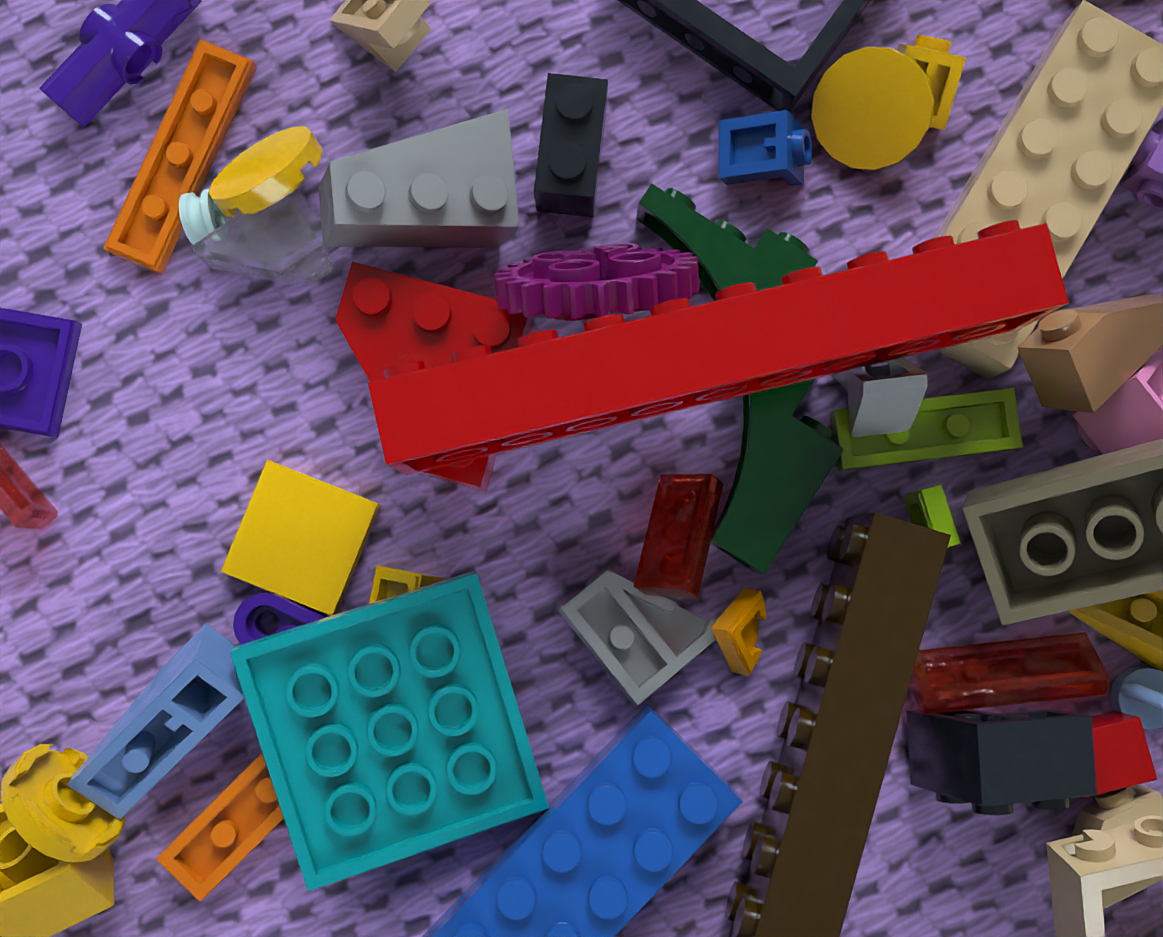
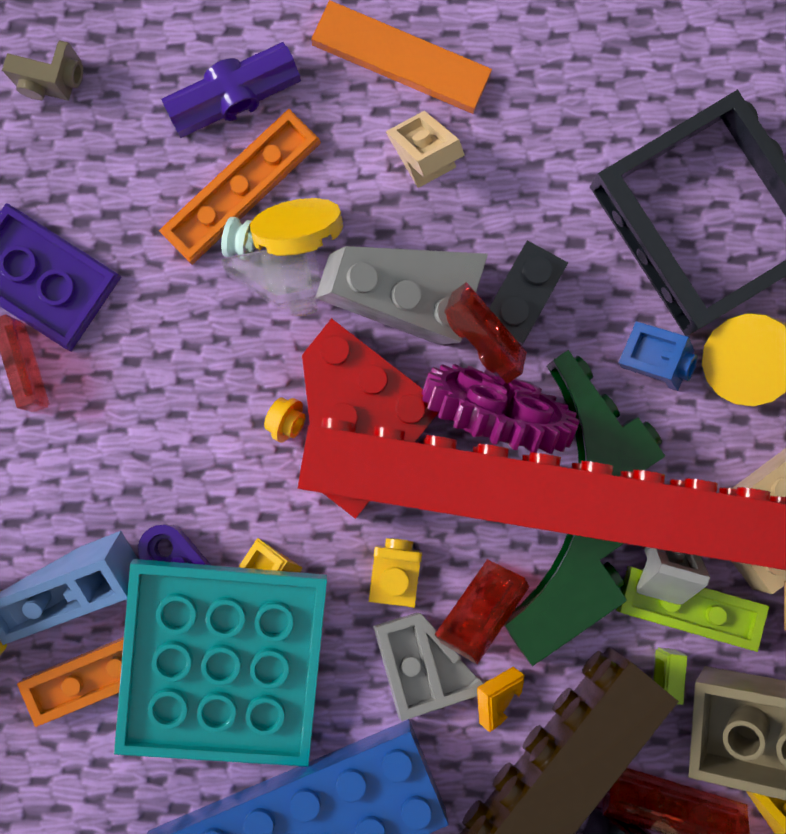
camera: 20 degrees right, 0 degrees up
(300, 538) = (212, 496): yellow tile -> none
(348, 409) = (285, 419): none -> yellow plate
(521, 189) = (495, 344): none -> clear red plate
(557, 535) = (395, 573): none -> yellow bracket

